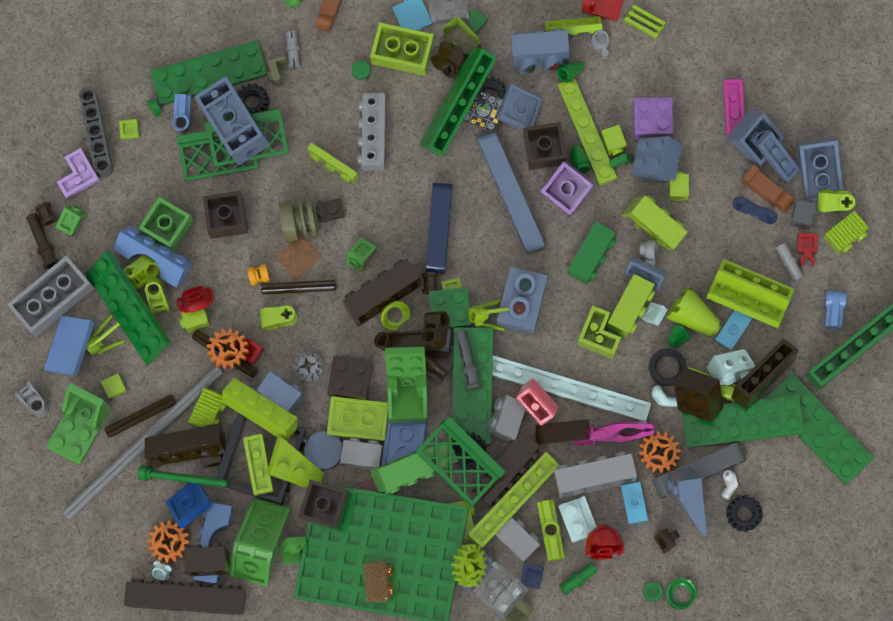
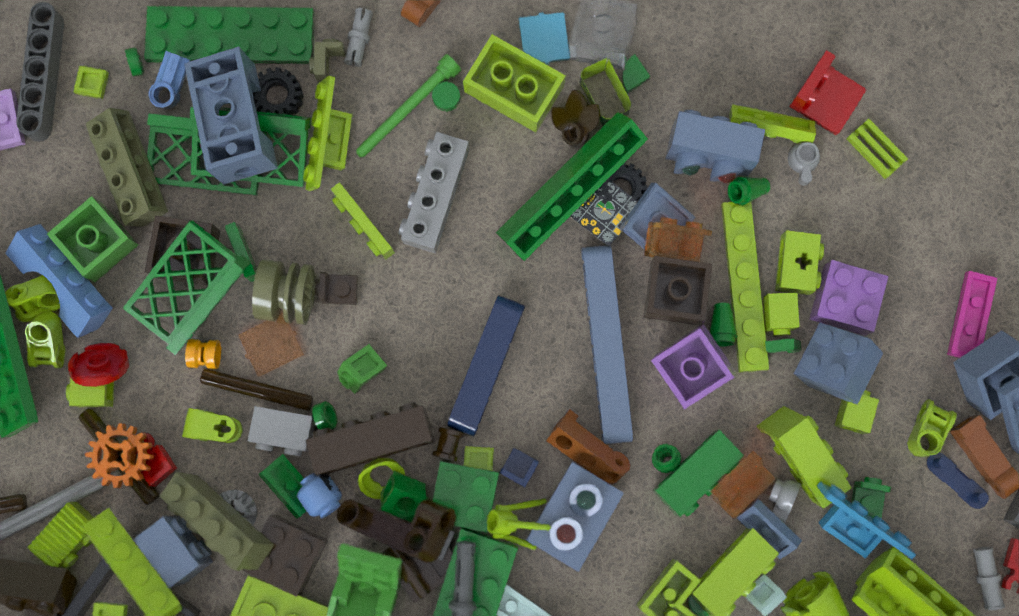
camera: 10 degrees right, 5 degrees up
(171, 174) = (126, 167): none -> olive brick
(251, 241) = (200, 307): none -> green fence
(263, 205) = (241, 248): none -> green tile
(295, 116) = (330, 136): none -> lime bracket
(298, 366) = (216, 522): none -> olive brick
(323, 305) = (280, 429): none -> light grey brick
(339, 337) = (285, 484): none -> green plate
(346, 287) = (324, 415): none -> green tile
(355, 53) = (446, 69): none -> bright green piece
(360, 335) = (319, 495): none -> medium blue head
(407, 316) = (399, 487): none -> green brick
(479, 284) = (519, 467): none -> dark blue panel
(517, 258) = (588, 450): none -> dark orange leg
(533, 114) = (674, 240): none -> clear orange bracket
(568, 250) = (662, 452): none -> green plate
(612, 96) = (789, 275): none -> lime brick
(620, 251) = (742, 485): none -> clear orange bracket
(696, 255) = (857, 529): none -> dark azure bracket
(702, 237) = (871, 495): none -> green bracket
(727, 181) = (934, 425): none -> lime piece

